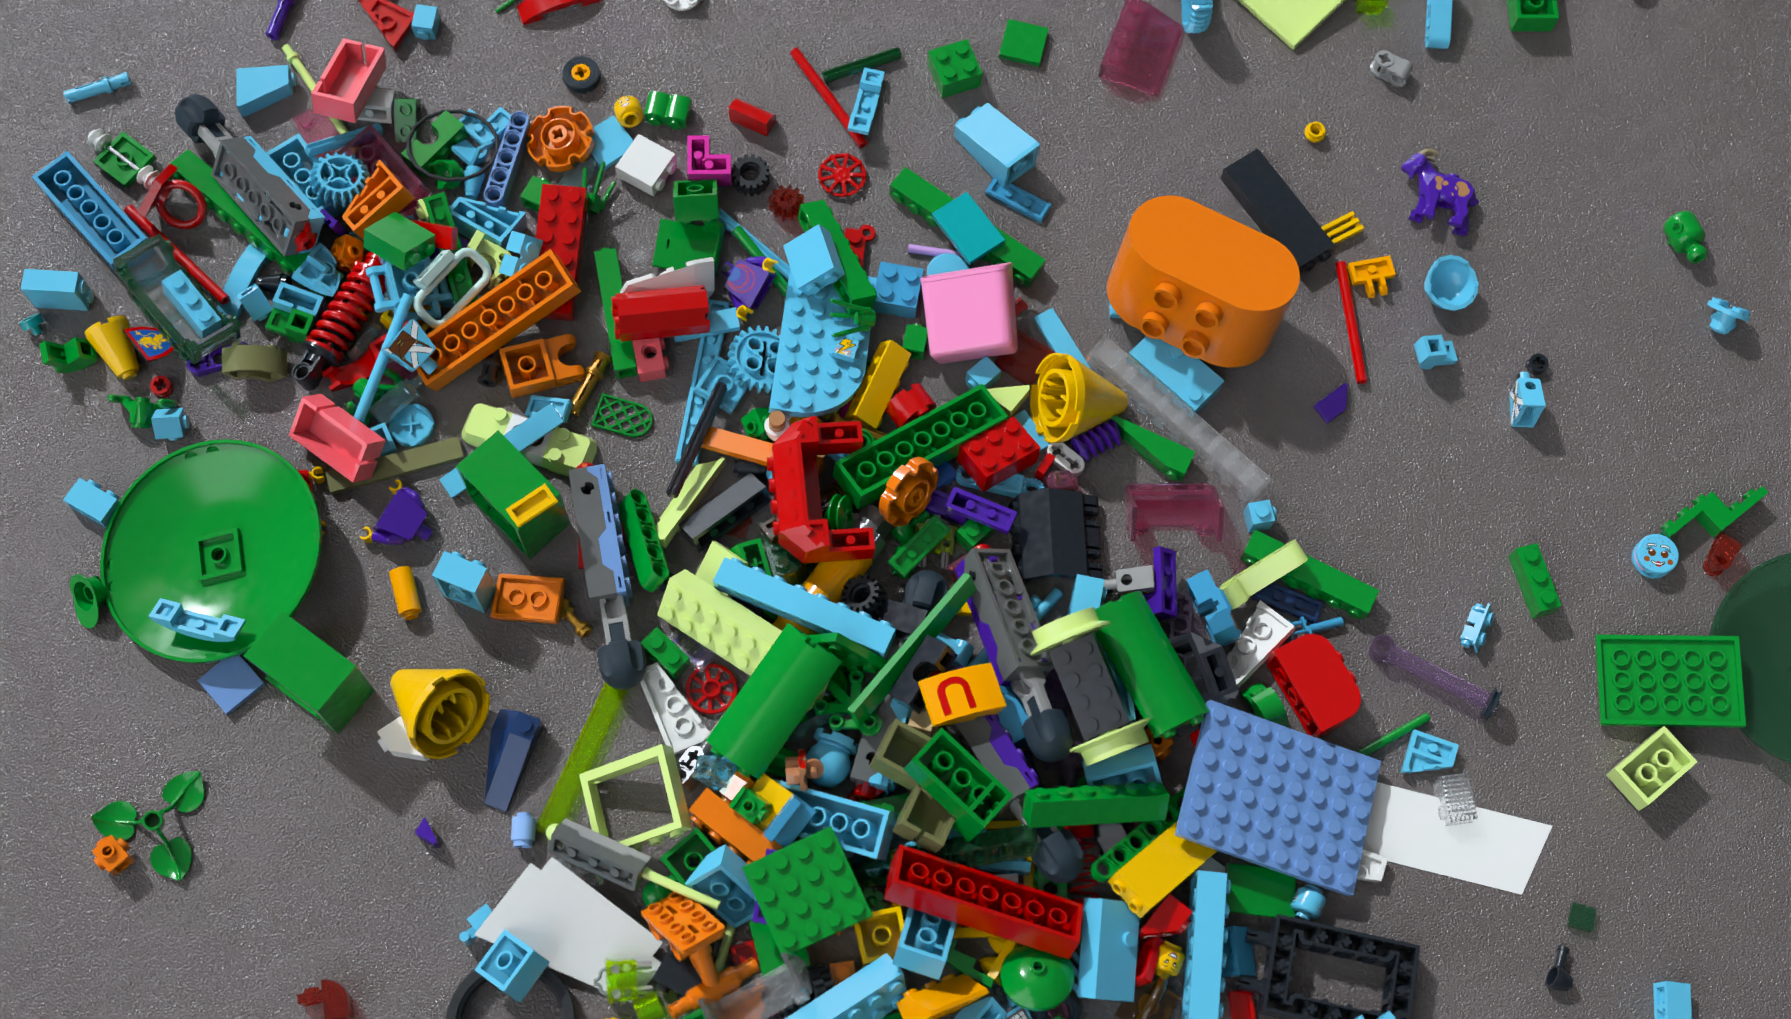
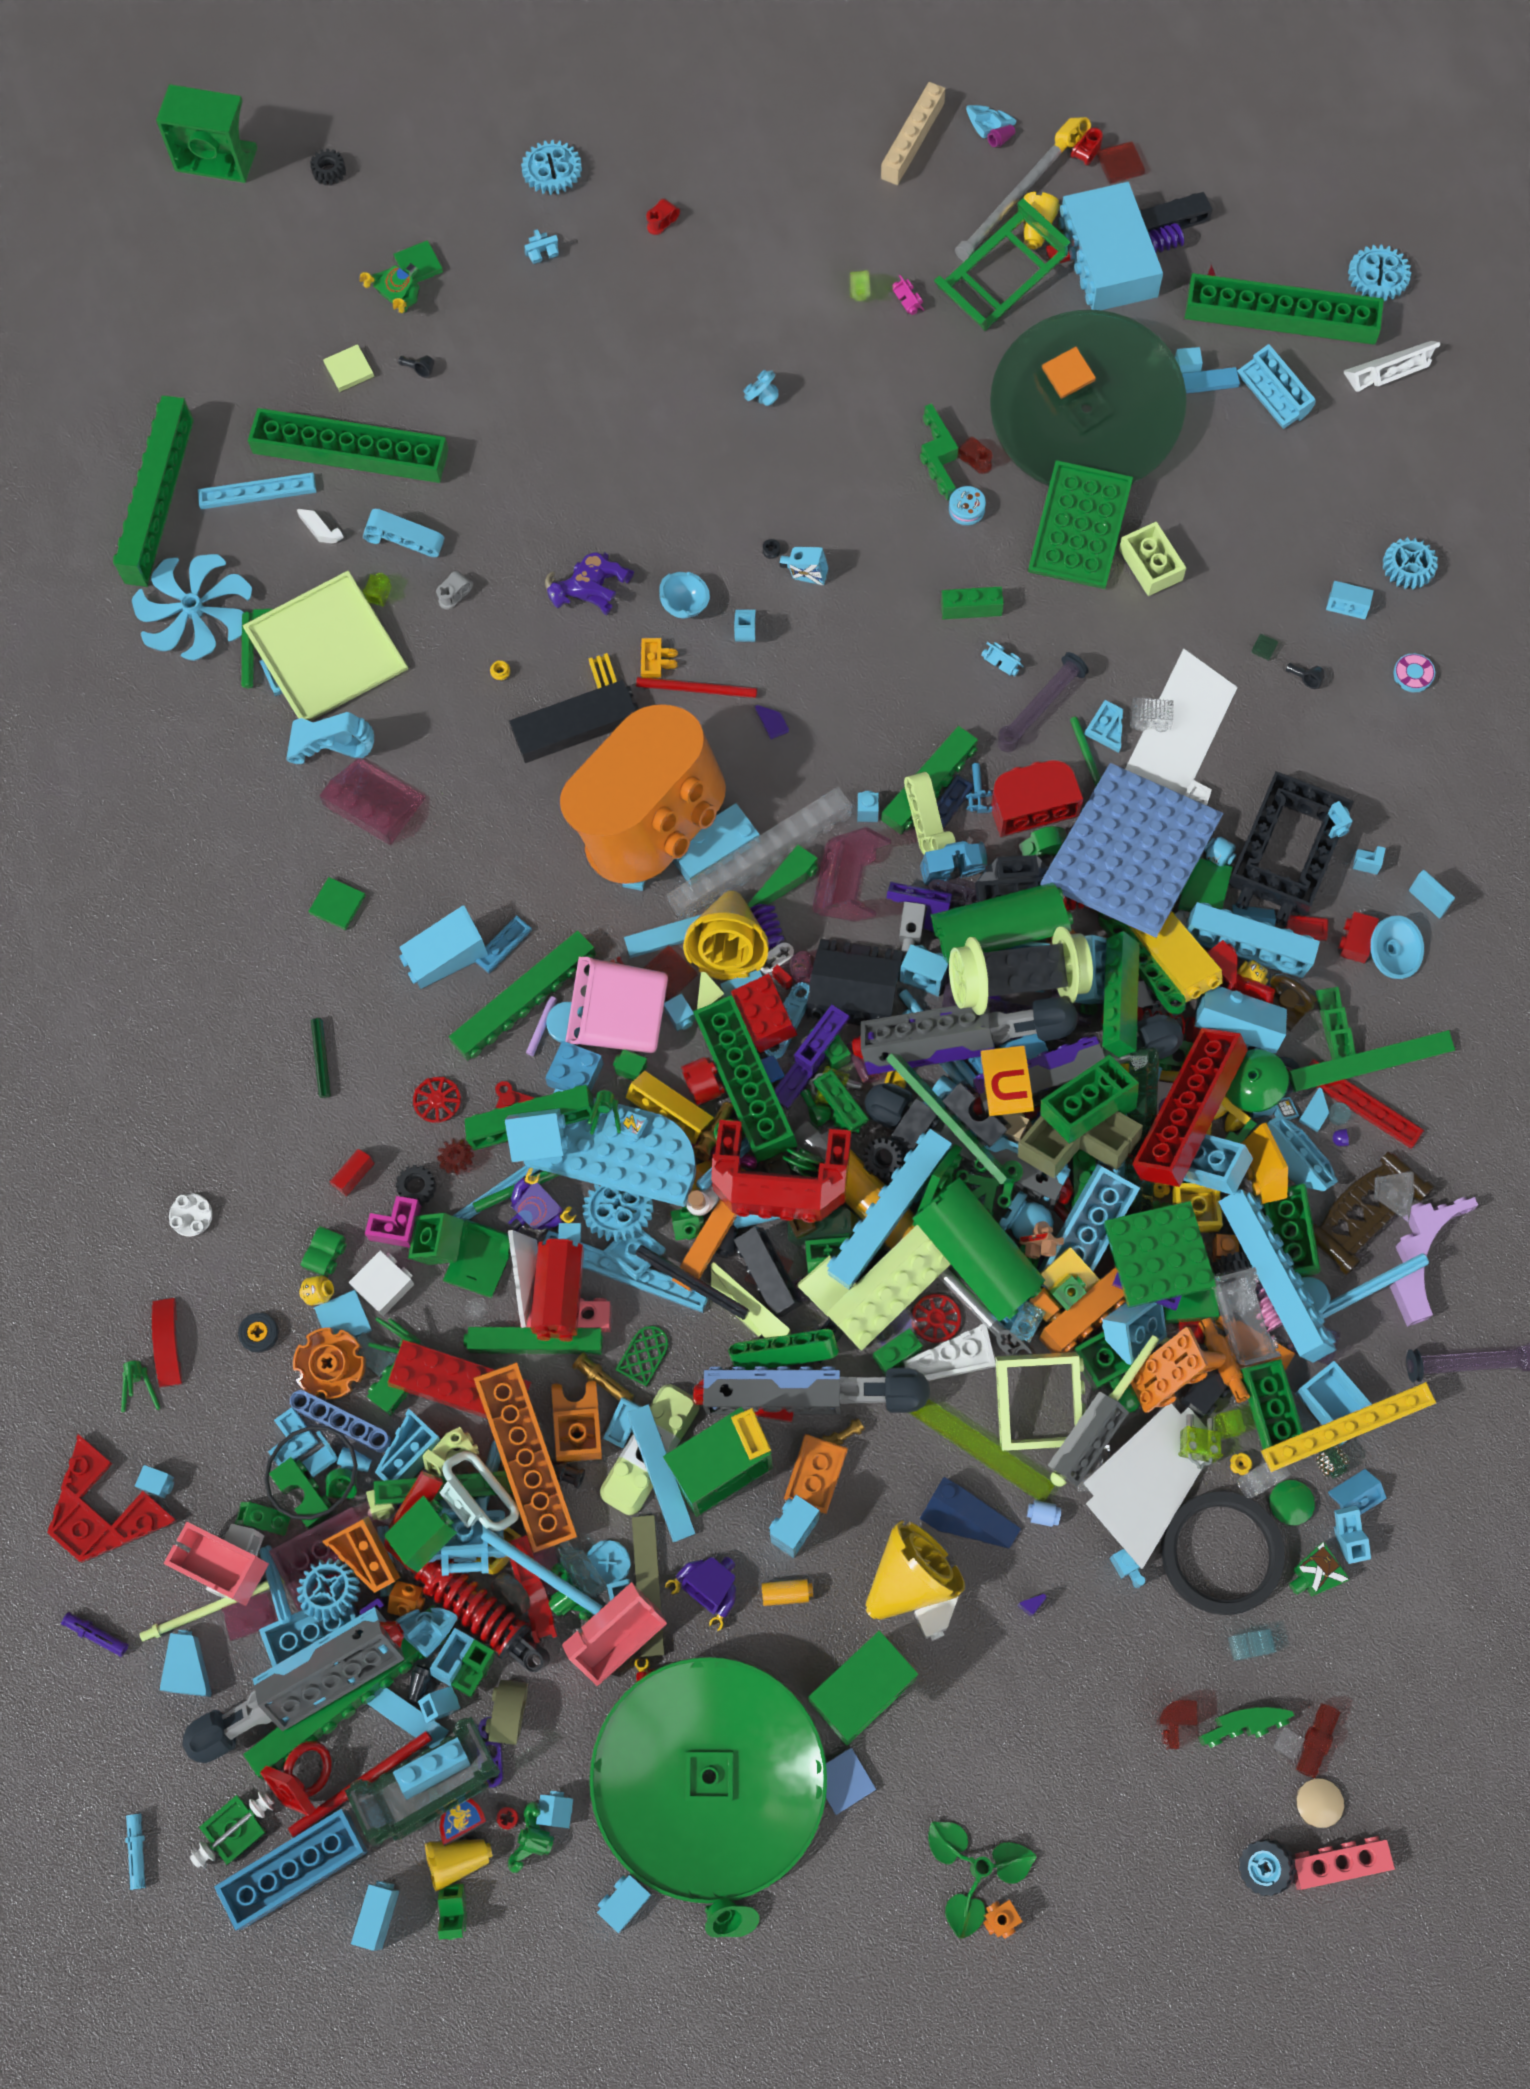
camera: 70 degrees left, 0 degrees up
(32, 323) = (403, 1951): teal tile -> none
(194, 624) = (787, 1799): medium azure slope -> none
(411, 348) = (540, 1539): torso -> none
(512, 966) = (1177, 1538): medium azure slope -> none
(526, 246) = (470, 1418): medium azure piece -> none
(789, 821) = (1089, 1260): dark azure panel -> none
(826, 94) = (348, 1096): red piece -> none
(866, 101) = (365, 1062): medium azure slope -> none
(908, 491) = (793, 1094): orange piece -> none
(954, 68) = (350, 970): green brick -> none
(968, 228) = (530, 991): teal tile -> none
(1262, 636) = (976, 827): white wing -> none
(1686, 235) = (679, 398): green piece -> none

